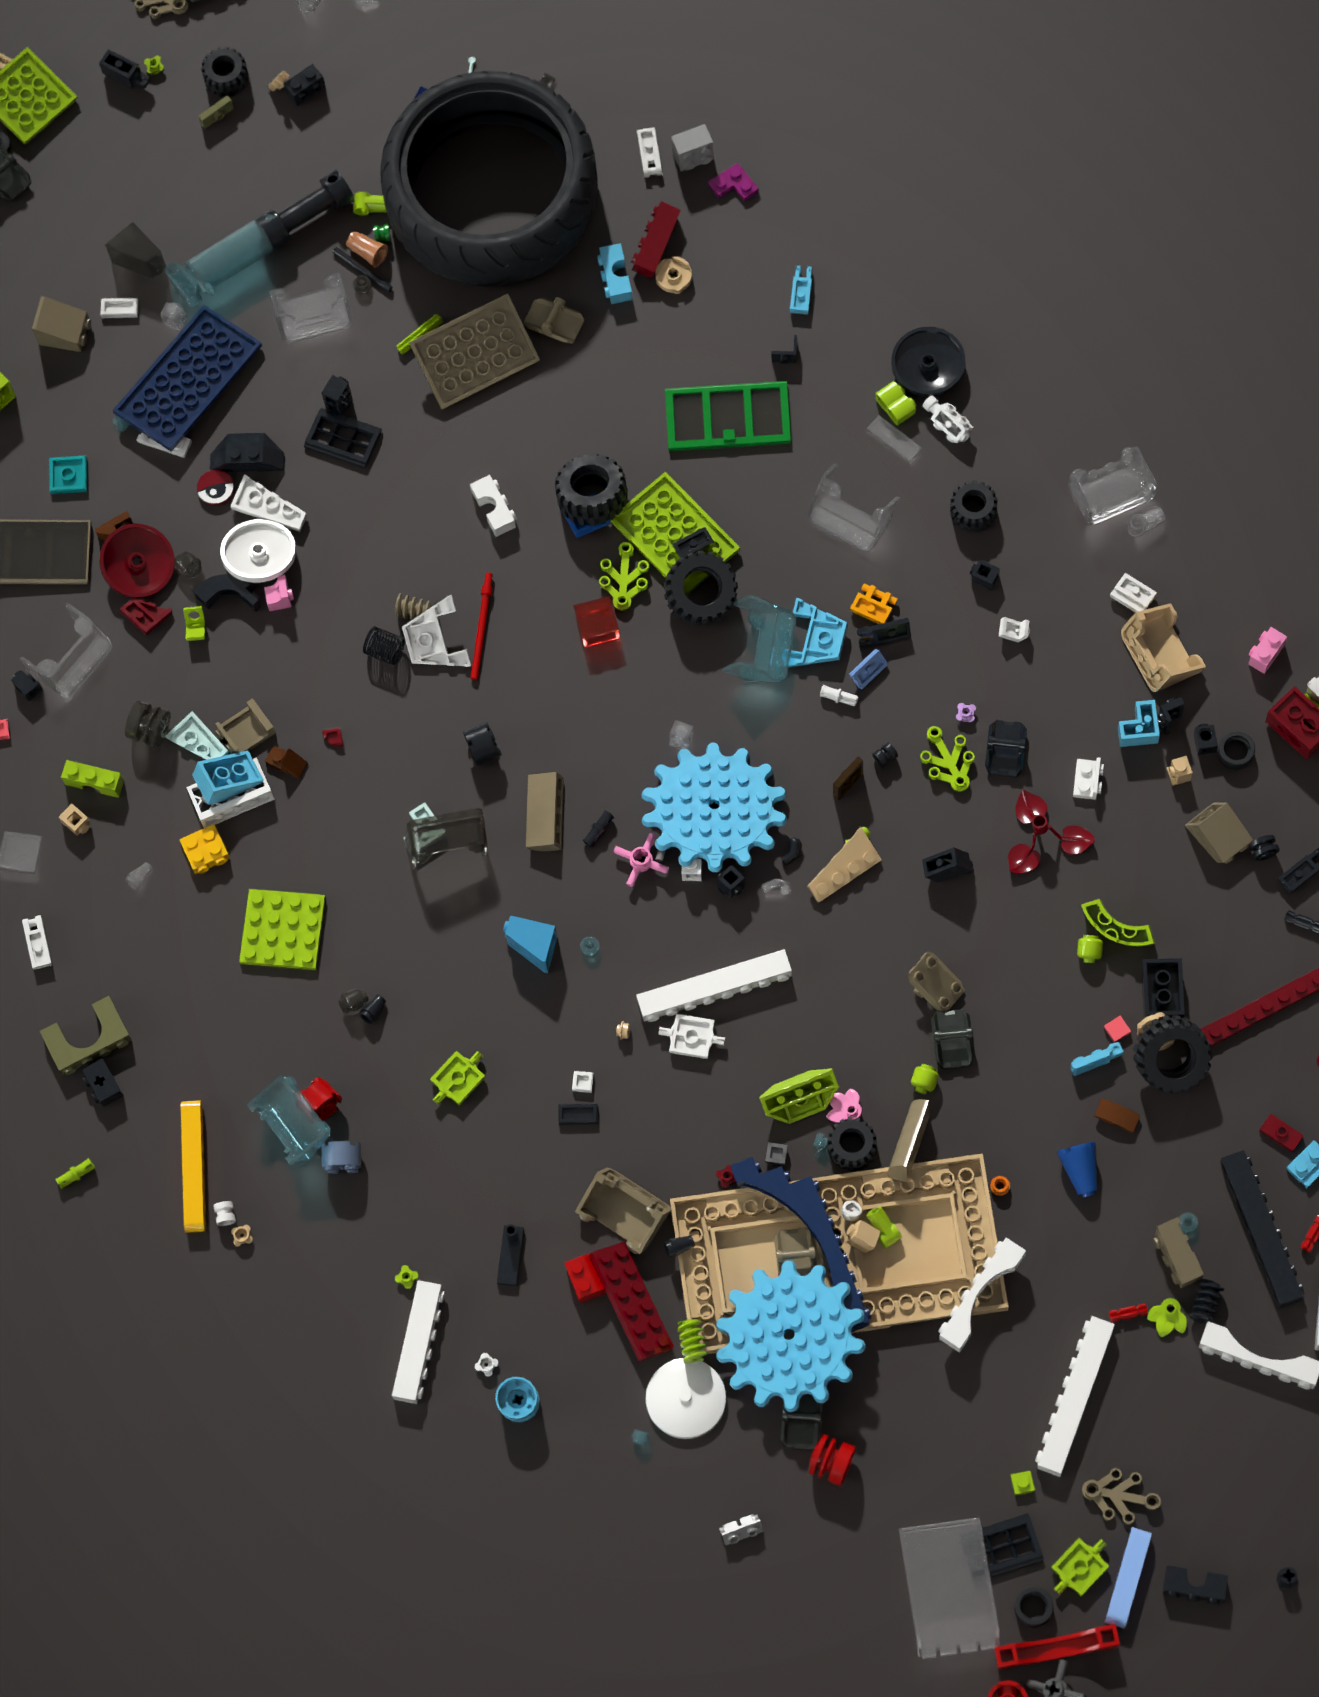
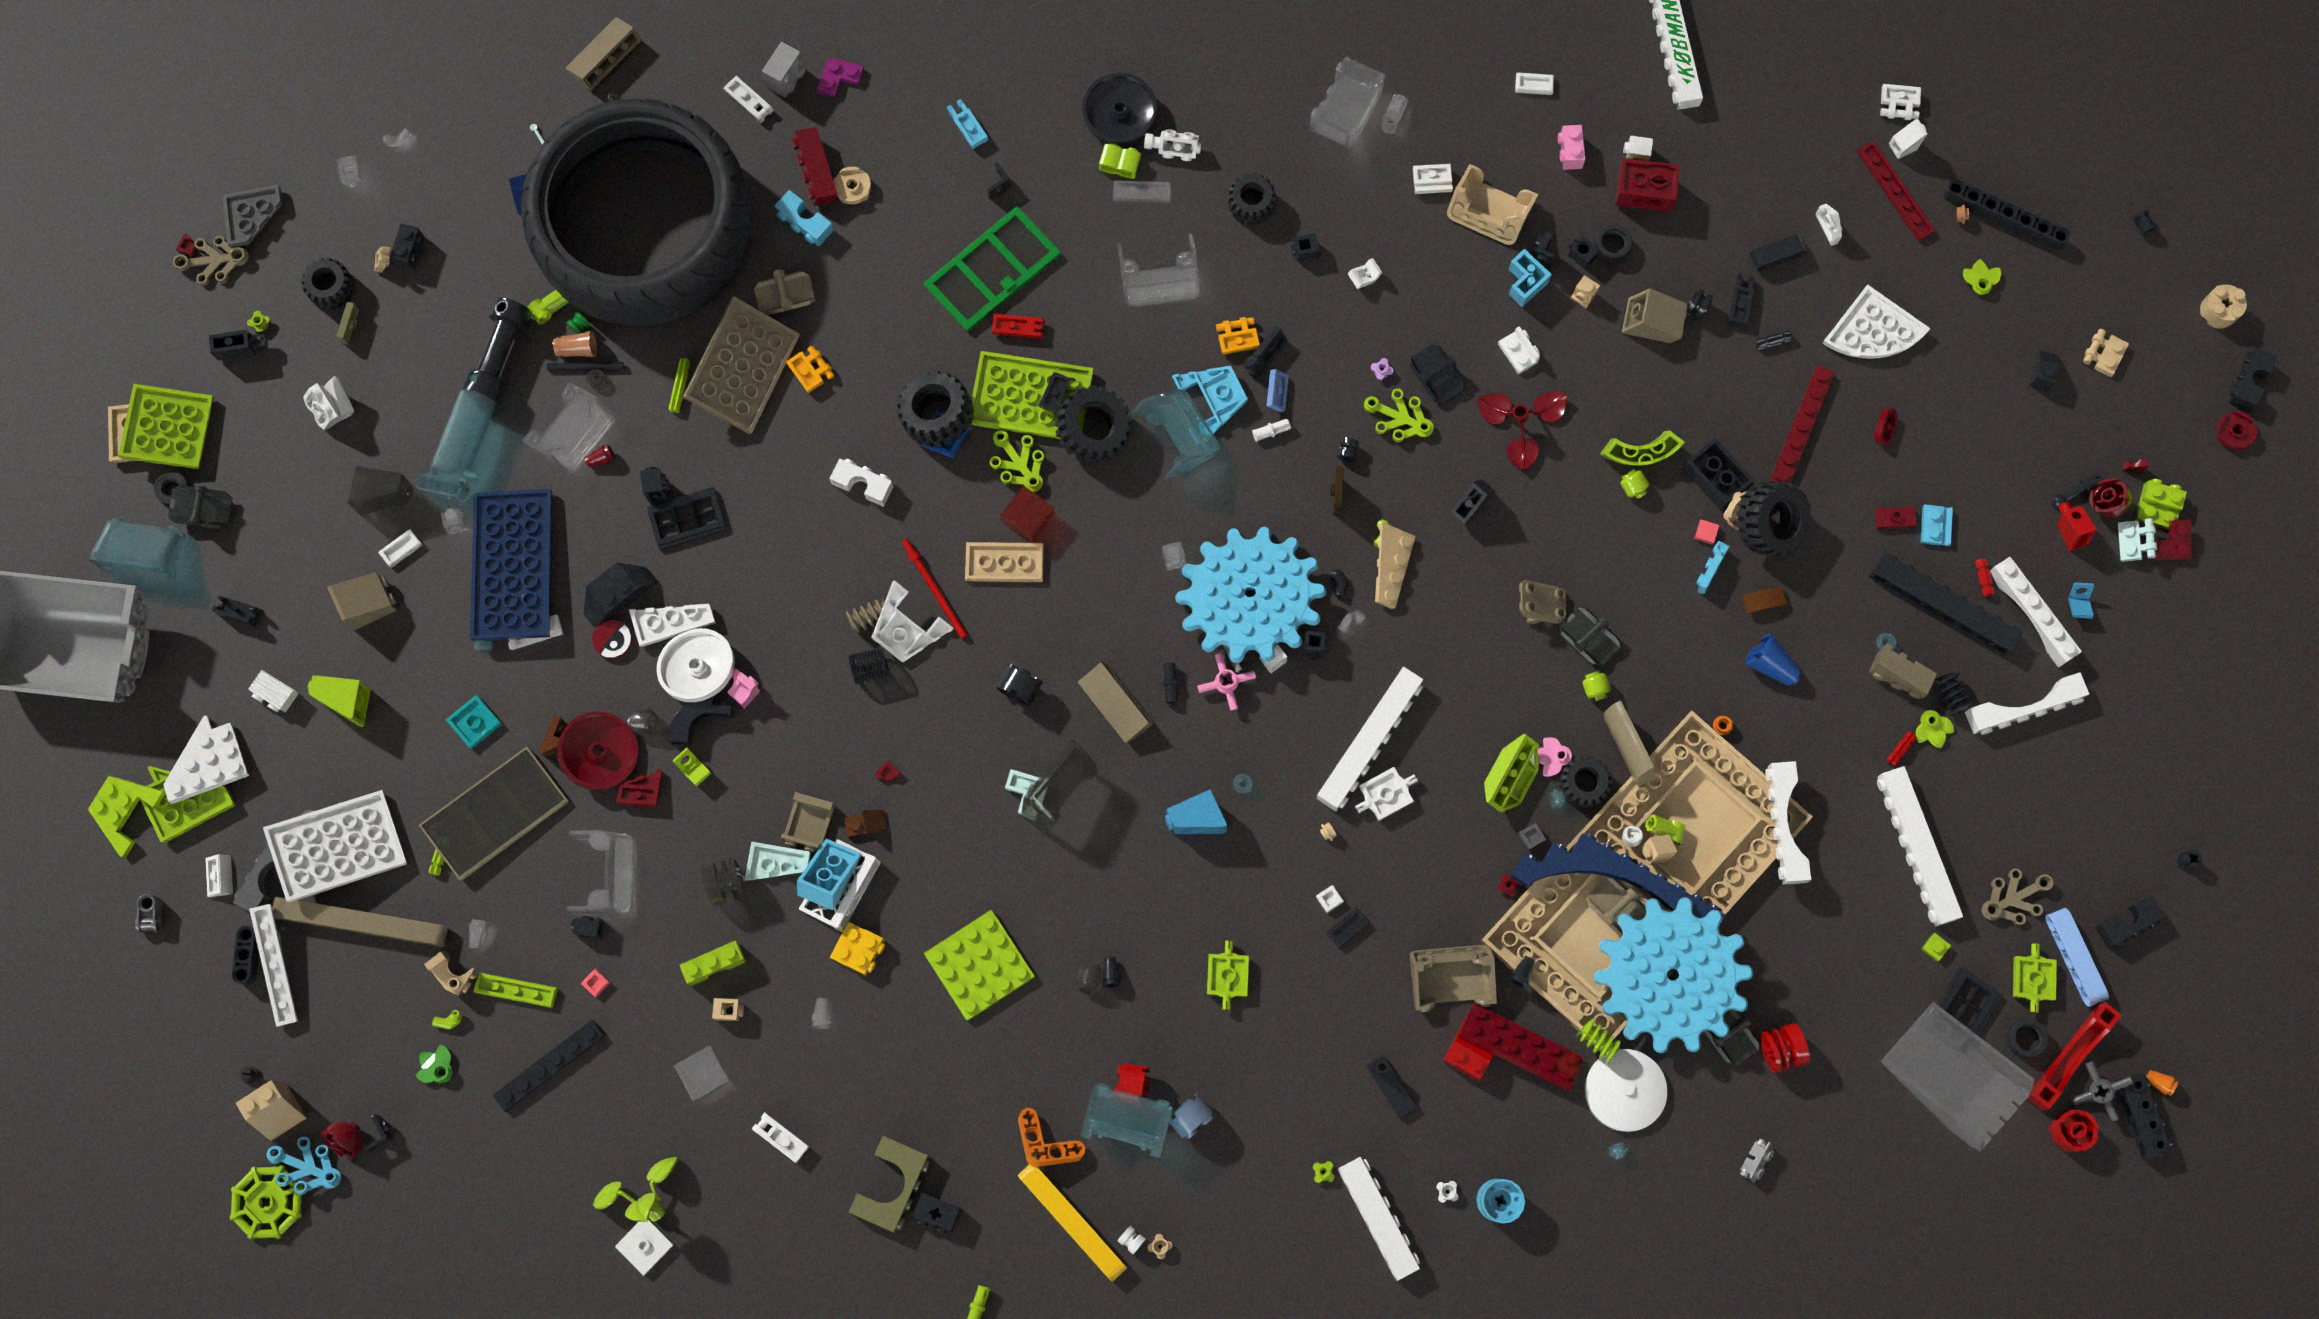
camera: 45 degrees left, 5 degrees up
(153, 161) = (328, 403): none -> white piece
(213, 1092) = (1039, 1147): none -> orange beam
(318, 345) = (600, 456): none -> dark red cone
(520, 390) = (804, 371): none -> light orange plate
(550, 645) = (1004, 562): none -> tan tile
(569, 40) = (603, 53): none -> dark tan brick
(709, 473) = (1017, 326): none -> red hinge
(1282, 579) = (1534, 83): none -> white tile

